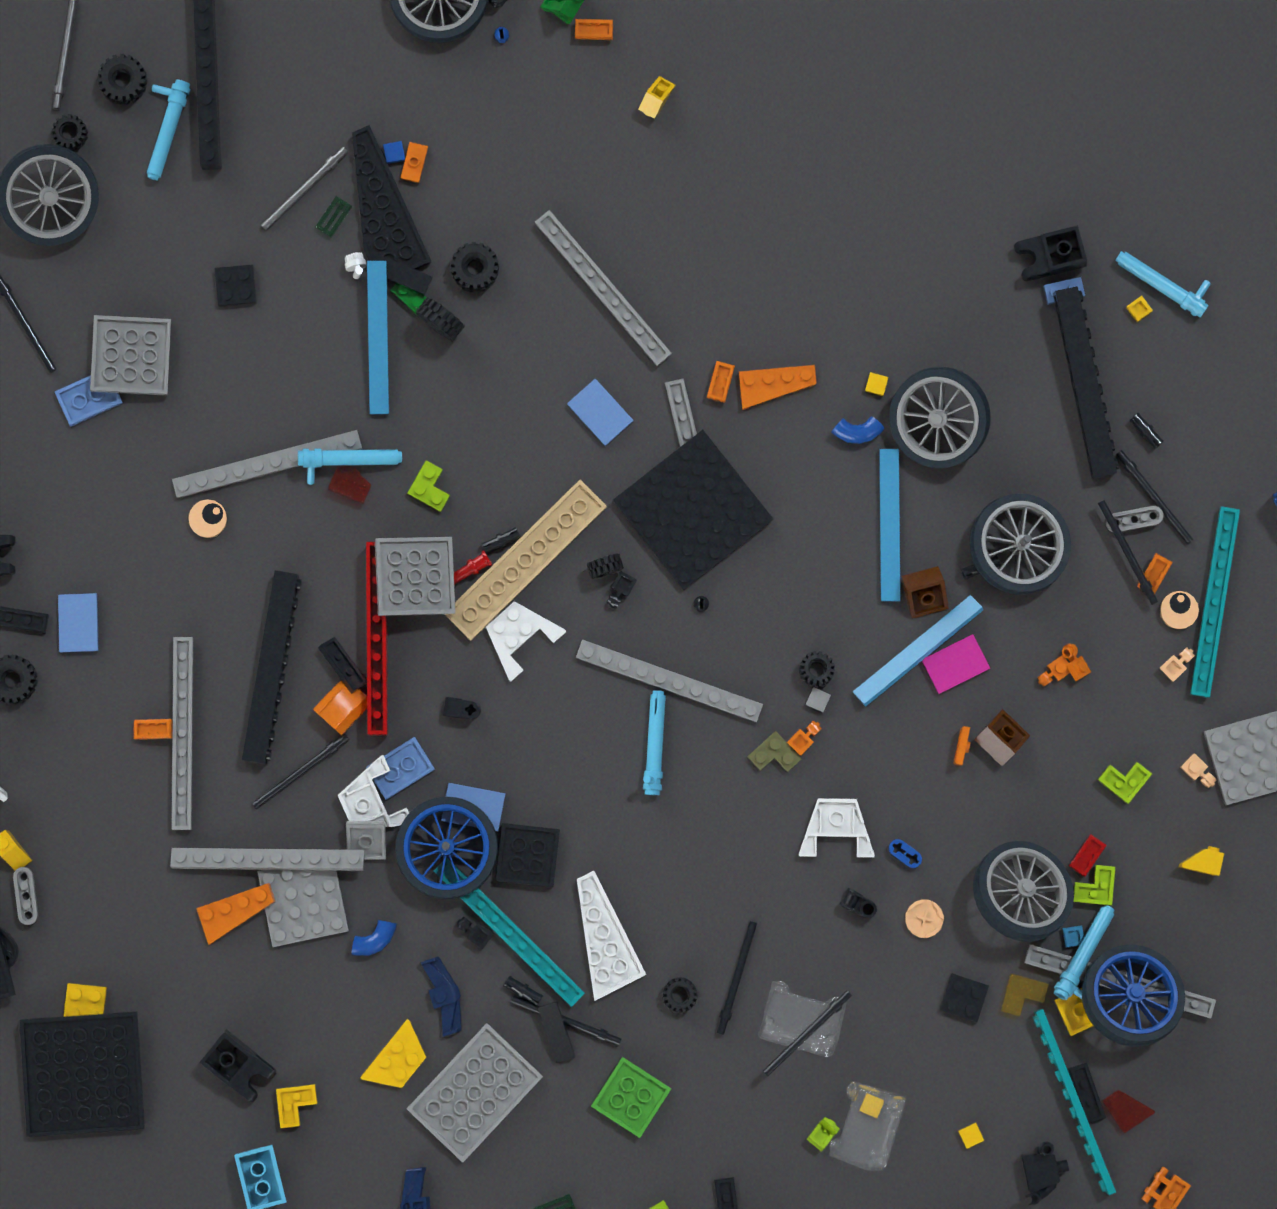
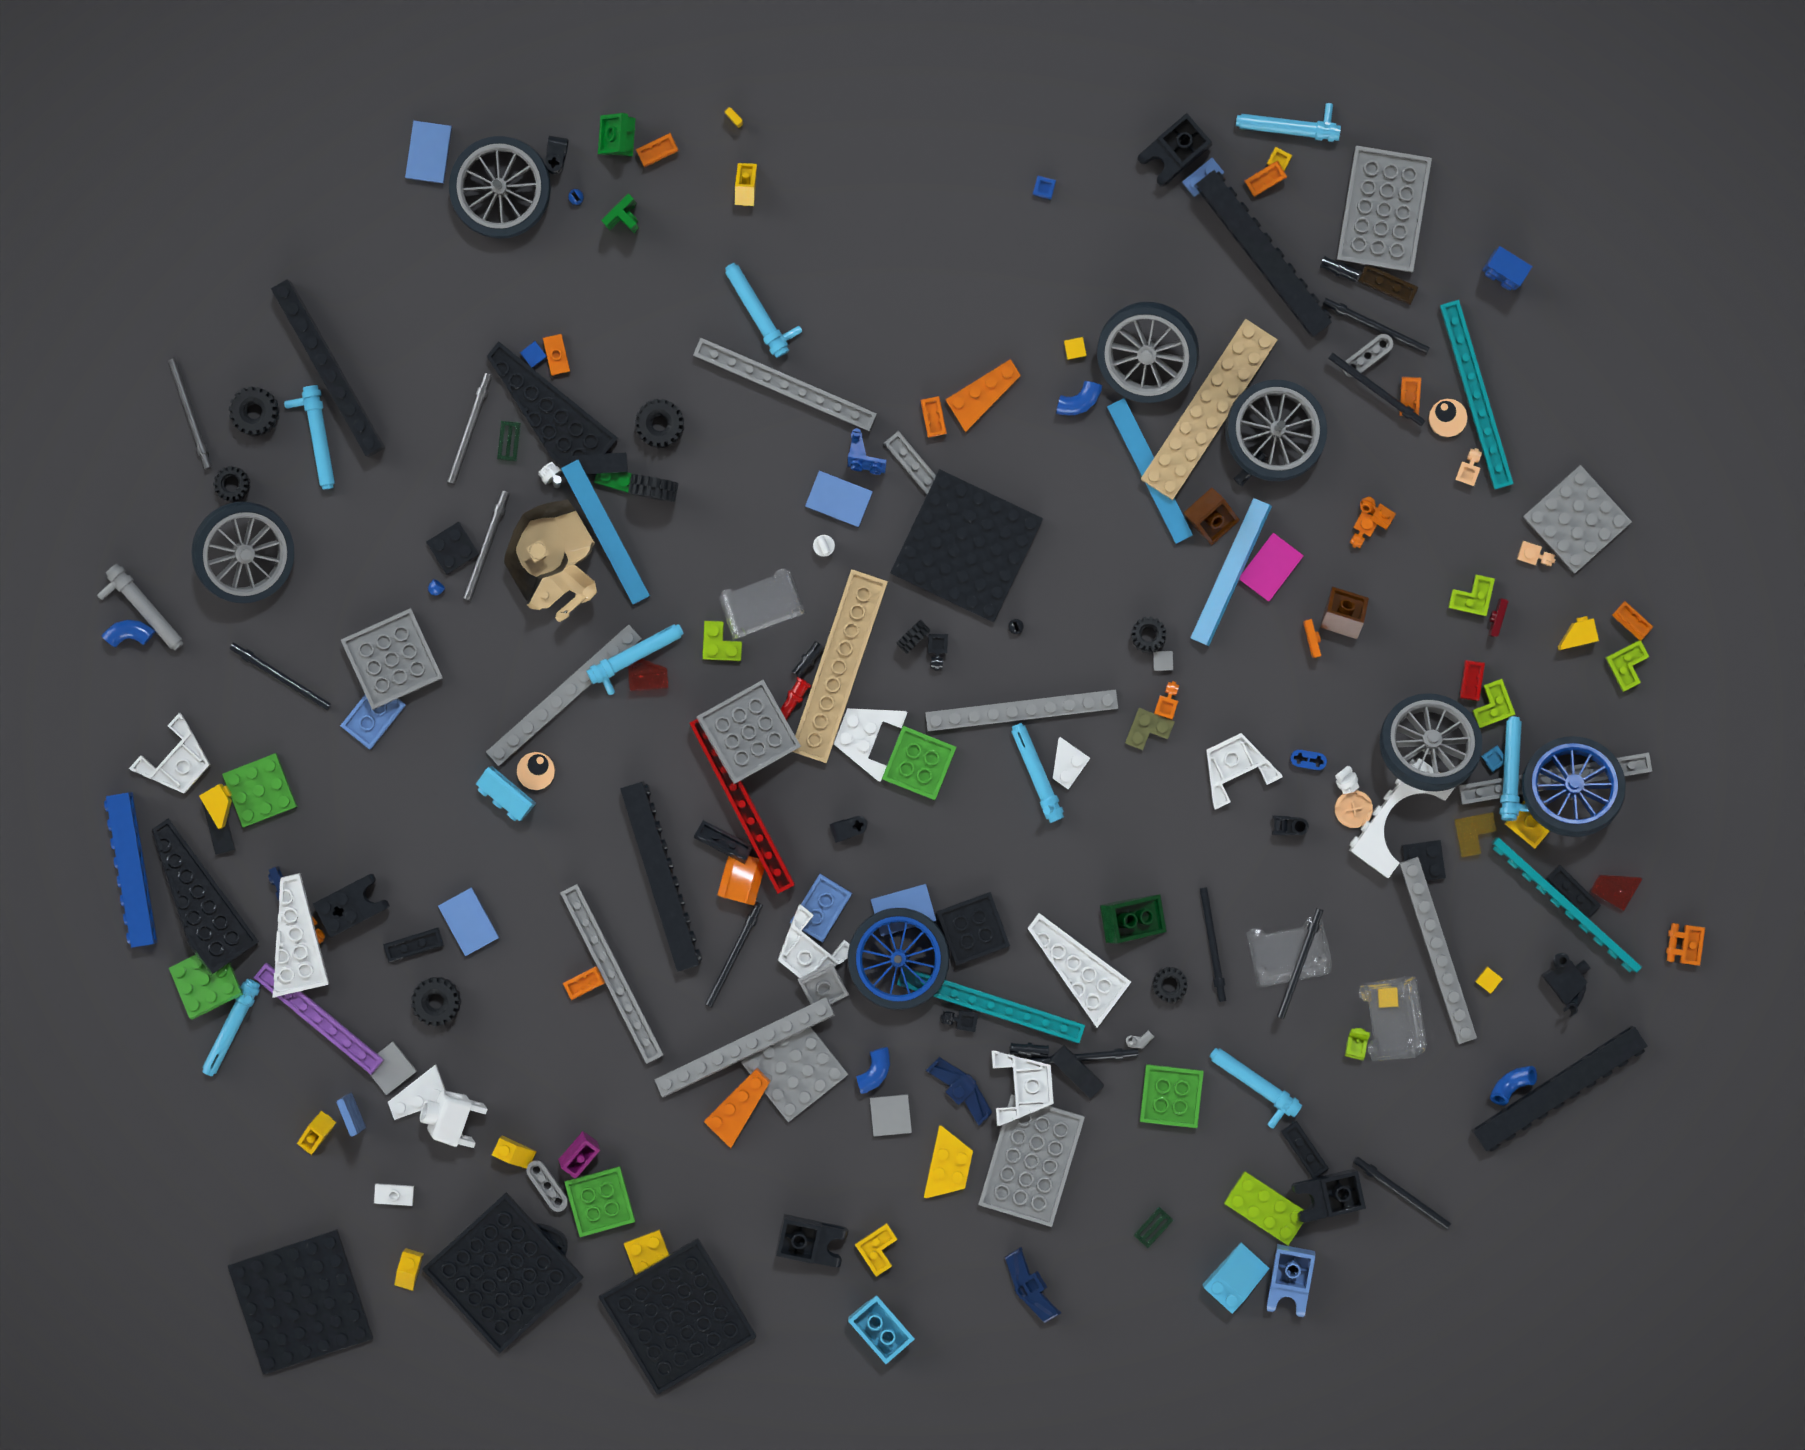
camera: 20 degrees left, 5 degrees up
(65, 934) = (600, 1201): none -> bright green plate
(68, 881) = (579, 1154): none -> magenta brick
(169, 524) = (505, 794): none -> medium azure slope
(202, 312) = (435, 587): none -> blue hinge
(292, 273) = (499, 509): none -> flat silver bar
(313, 330) = (545, 554): none -> tan piece
(368, 987) = (890, 1115): none -> light grey tile
(484, 470) = (761, 604): none -> clear windscreen
(508, 1024) = (1031, 1086): none -> white wing
(535, 66) = (622, 212): none -> green bracket
(553, 681) = (919, 763): none -> bright green plate
(566, 446) = (824, 545): none -> white piece
(612, 240) = (771, 335): none -> medium azure cylinder
(625, 1033) = (1139, 1042): none -> light grey arm
(635, 386) = (857, 456): none -> blue plate
(675, 33) = (734, 117): none -> yellow tile
(676, 918) = (1133, 919): none -> dark green slope
(687, 749) = (1068, 763): none -> white wing
(728, 1149) = (1279, 1098): none -> medium azure cylinder
(919, 230) = (1044, 187): none -> blue tile
(924, 958) = (1371, 843): none -> white arch
(931, 889) = (1347, 780): none -> white piece
(938, 1085) = (1438, 950): none -> light grey plate
(968, 496) = (1208, 409): none -> tan plate
(1119, 319) = (1265, 178): none -> orange plate
(1137, 810) = (1497, 617): none -> dark red plate
(1183, 465) = (1388, 284): none -> dark brown tile
(1211, 397) = (1384, 209): none -> light grey plate
(1231, 906) = (1622, 664): none -> lime plate
(1258, 873) = (1632, 620): none -> orange plate

